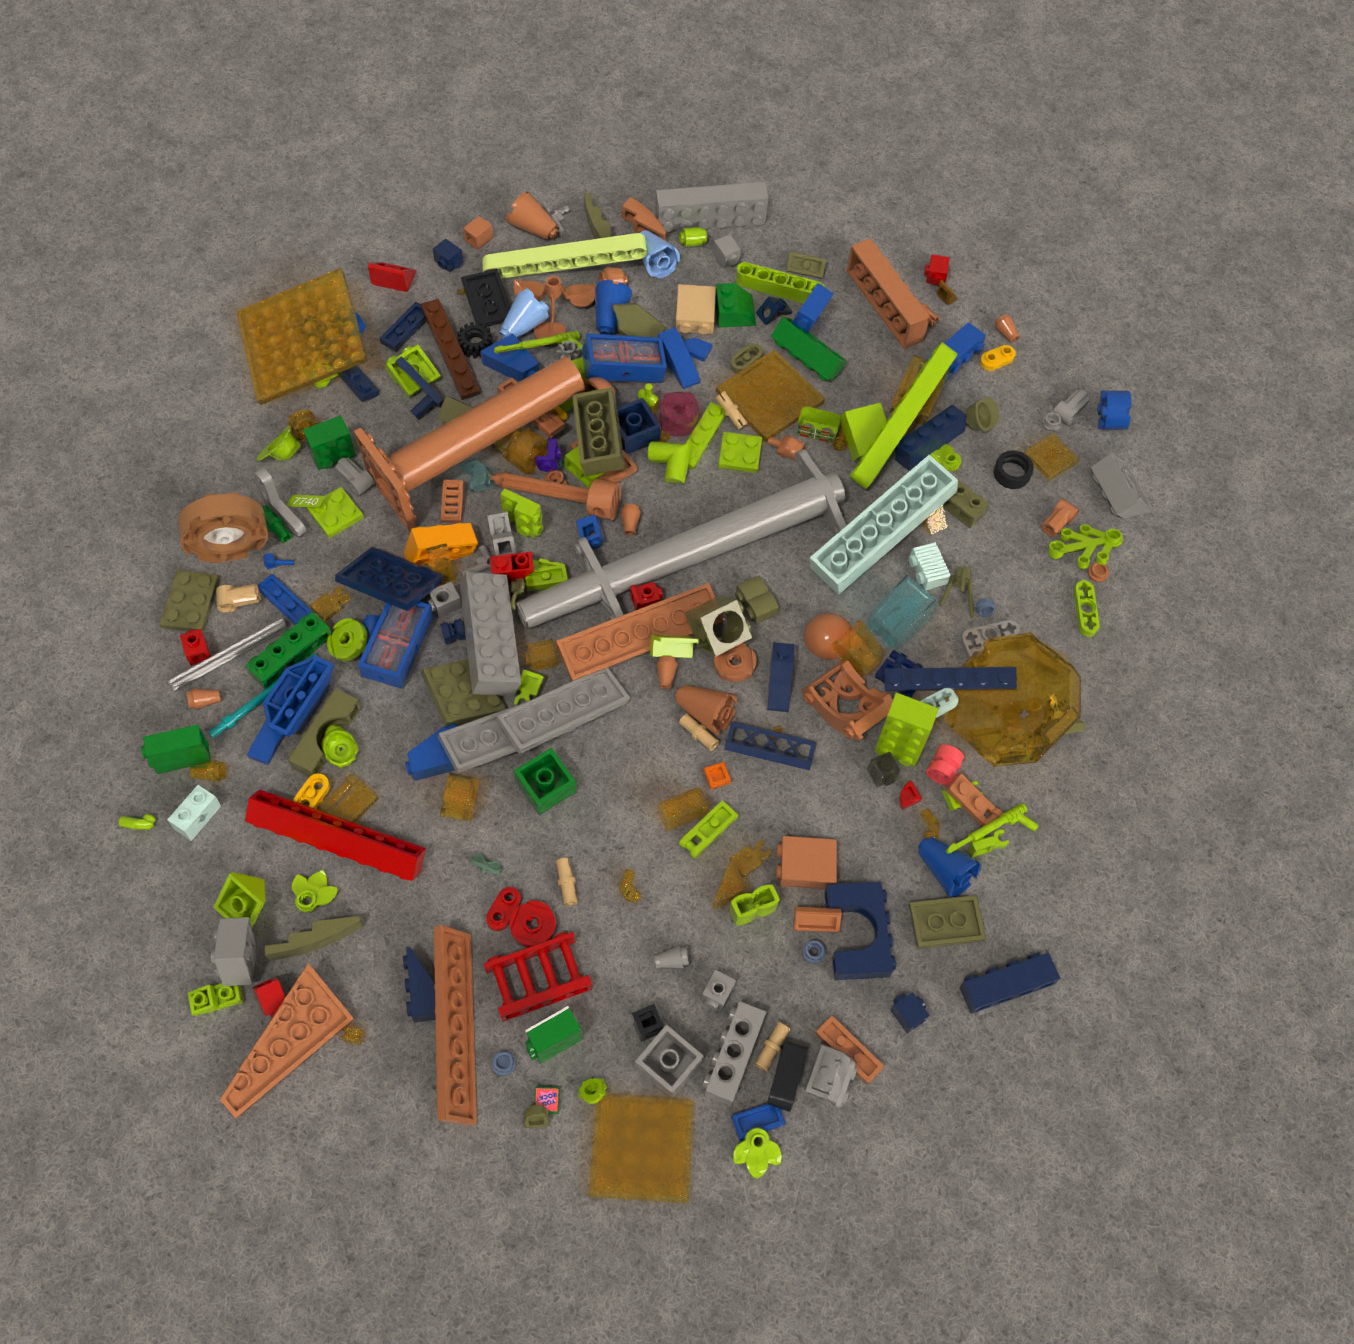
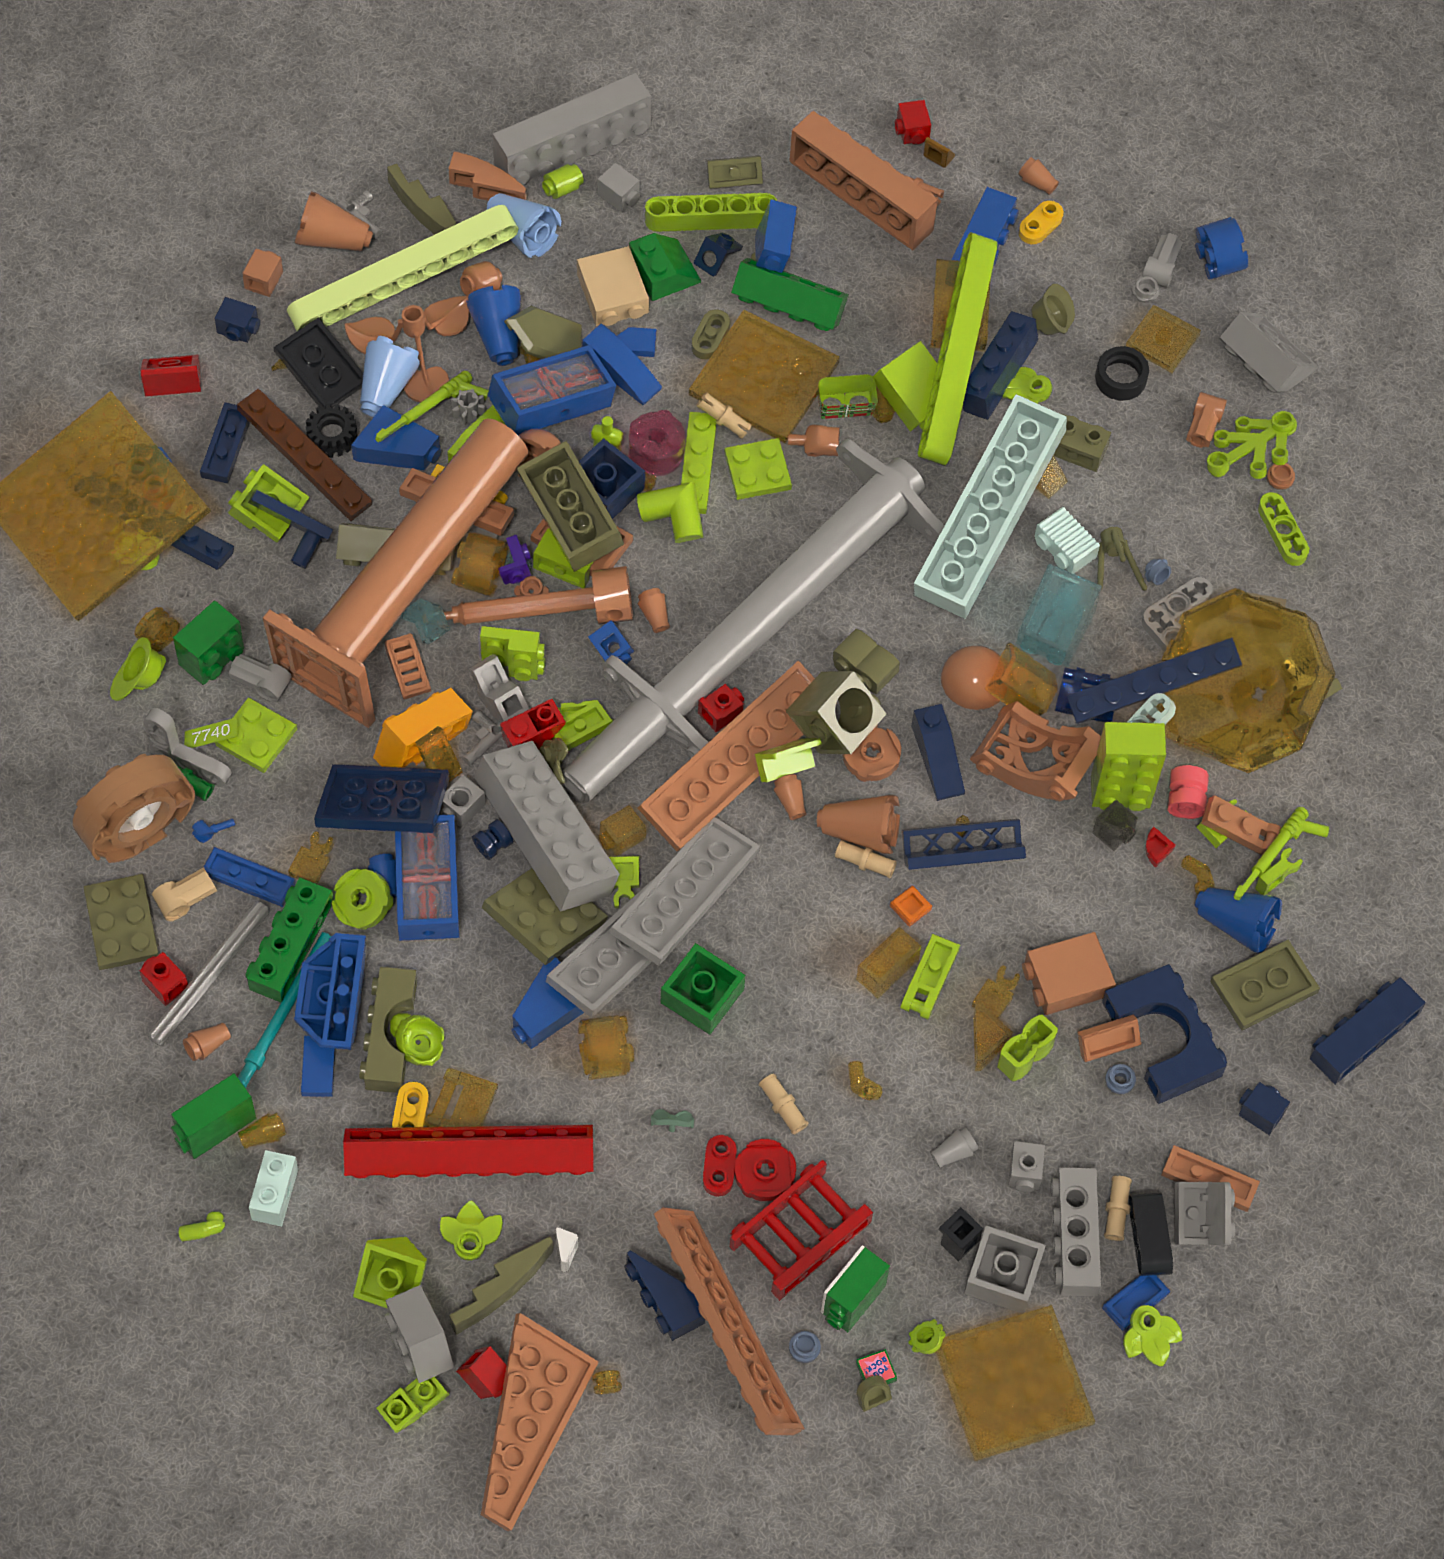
camera: 20 degrees left, 0 degrees up
(369, 928) = (567, 1246): none -> white slope

